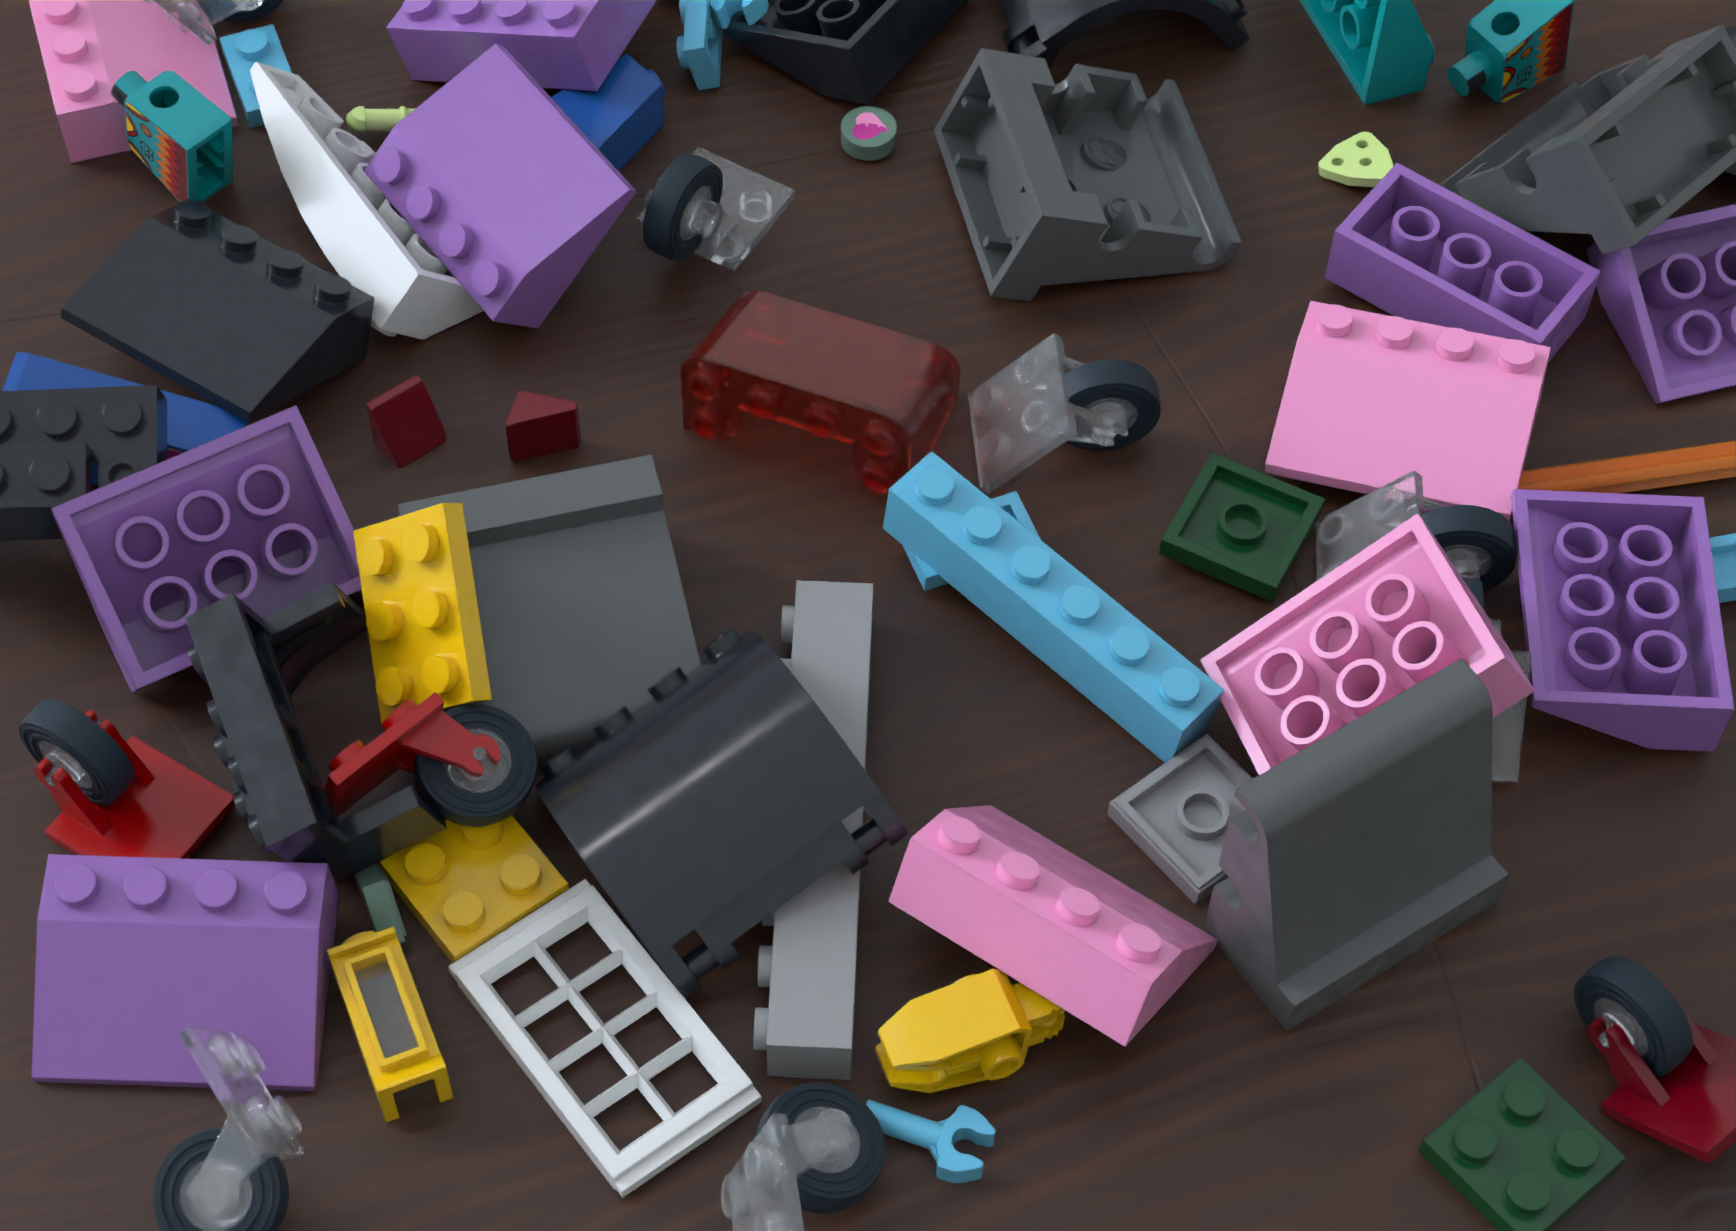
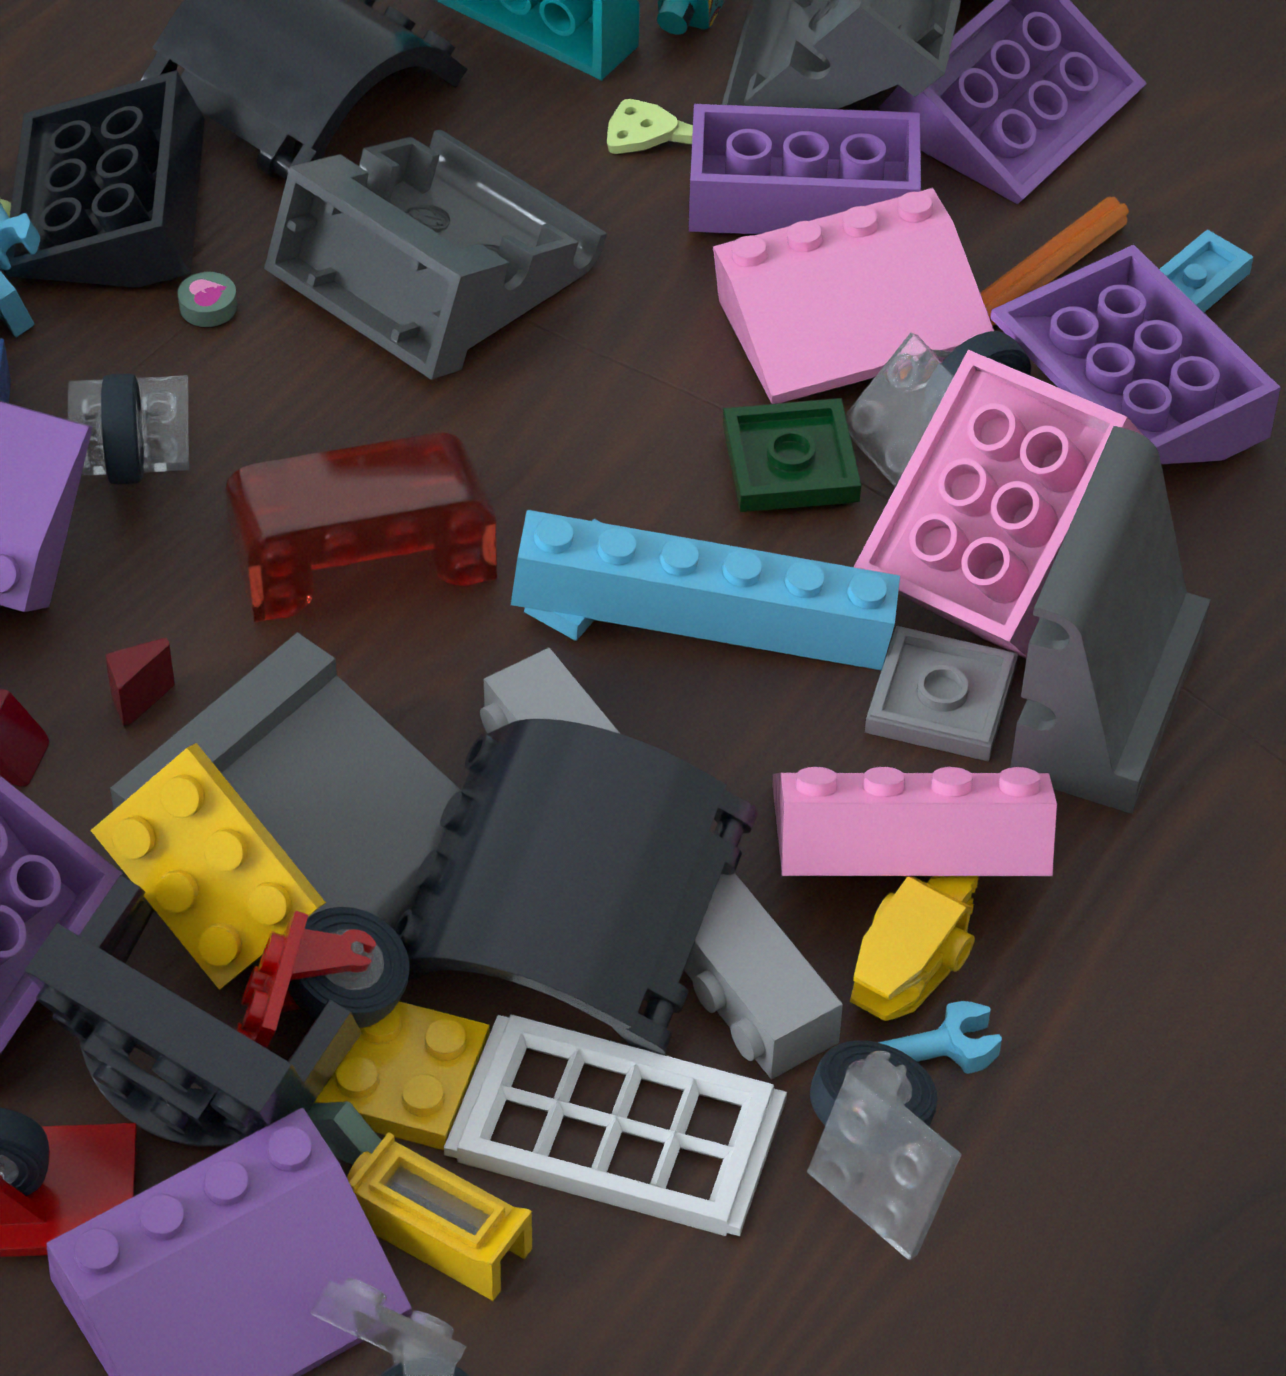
camera: 35 degrees left, 5 degrees down
(1055, 401) = (569, 434): clear plate -> none

